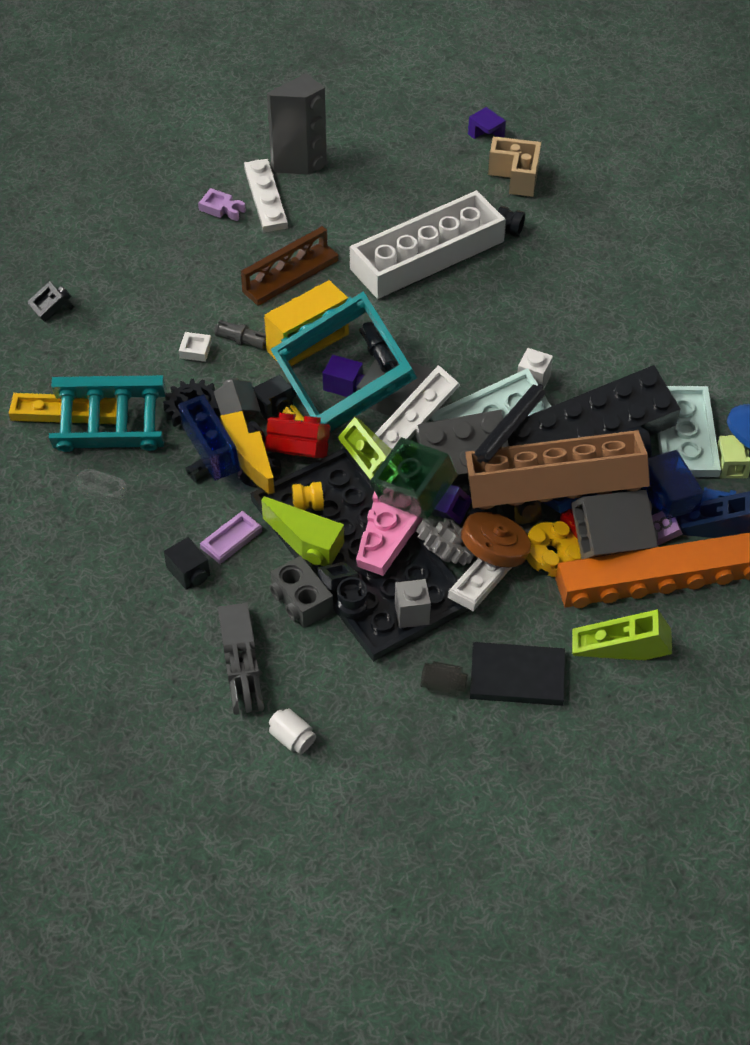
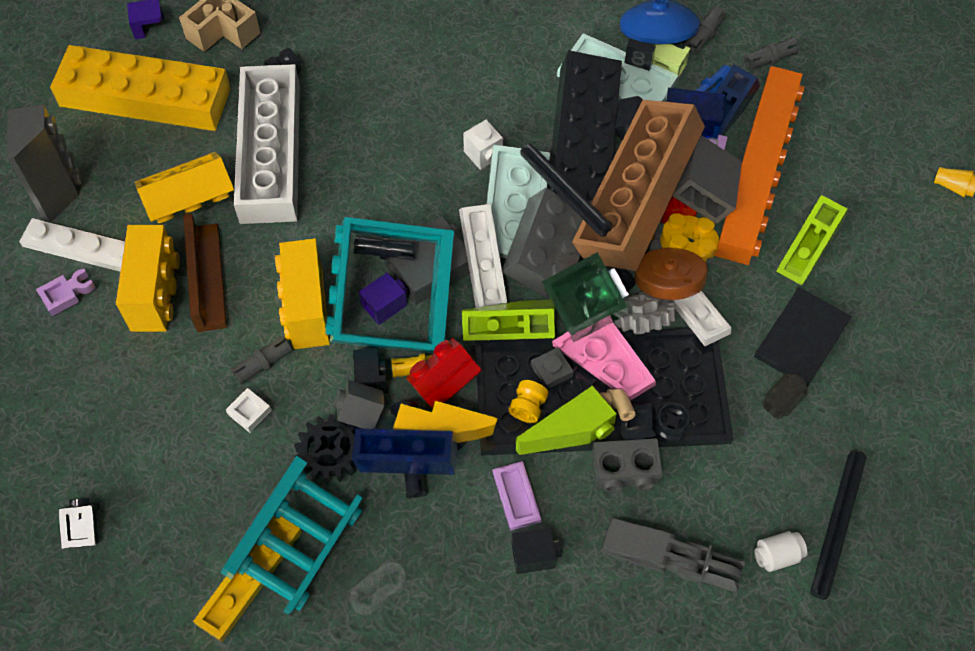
camera: 60 degrees left, 10 degrees up
(255, 233) = (147, 278): none -> yellow brick
(344, 214) = (184, 187): none -> yellow brick
(346, 553) = (619, 400): none -> tan arm
(347, 768) = (838, 525): none -> black axle
(352, 503) = (552, 368): none -> dark grey plate
(412, 603) = (707, 376): light grey brick -> none
(420, 153) = (141, 87): none -> yellow brick
(711, 427) = (639, 54): none -> black tile

